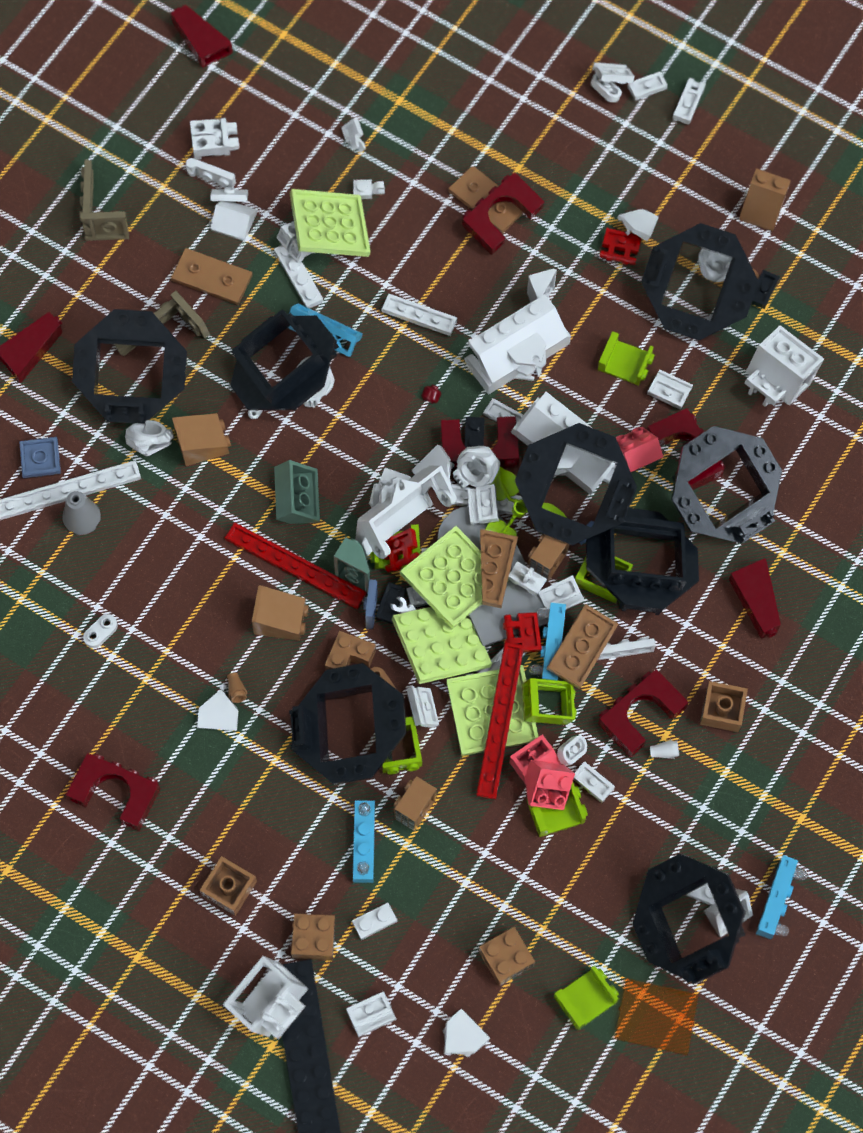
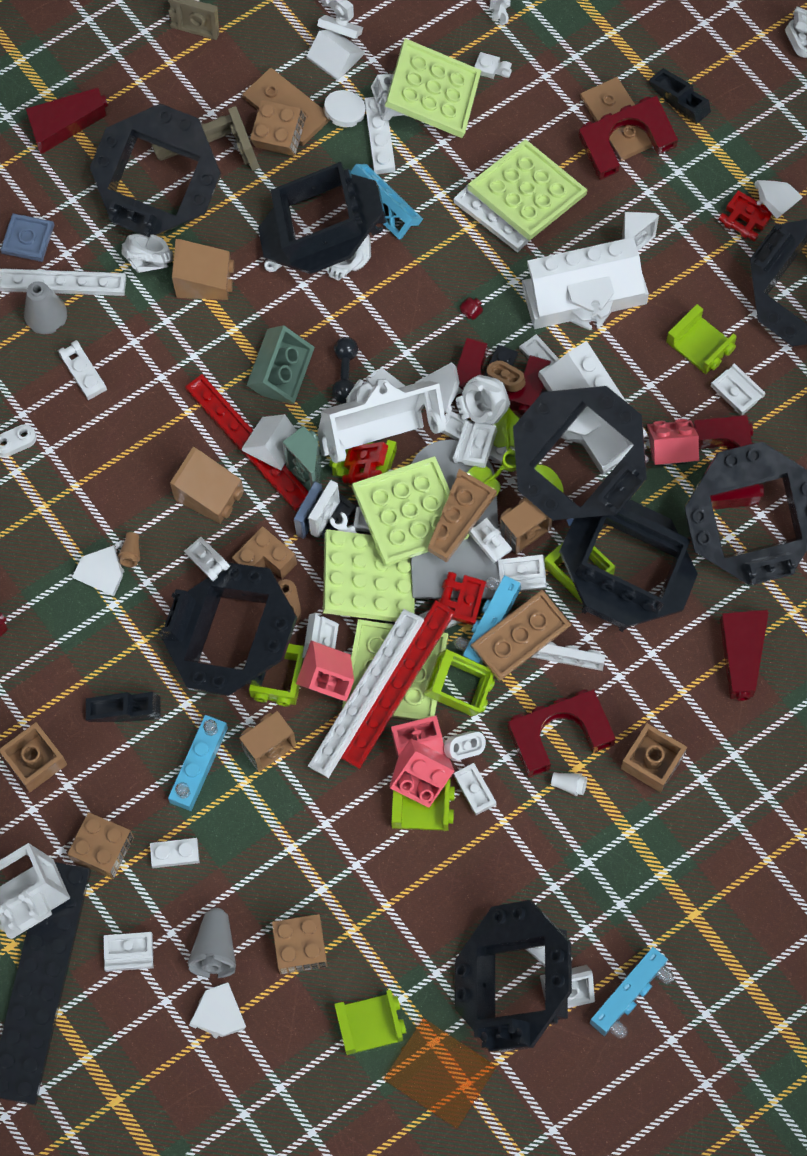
camera: 25 degrees right, 0 degrees up
(133, 553) = (82, 370): none -> white plate
(214, 296) = (278, 127): none -> medium nougat brick
(261, 262) = (344, 108): none -> white tile
(284, 819) = (123, 707): none -> black slope
(304, 673) = (206, 558): none -> white plate
(316, 557) = (268, 438): none -> white slope
(357, 496) = (345, 350): none -> black piece
(385, 599) = (324, 509): none -> white tile
(438, 282) = (527, 189): none -> yellowish green plate
(439, 984) = (213, 946): none -> light grey cone
(440, 730) = (327, 671): none -> coral slope
(478, 736) = (366, 693): none -> white tile
(486, 438) = (510, 376): none -> medium nougat plate
(529, 164) = (680, 95): none -> black slope

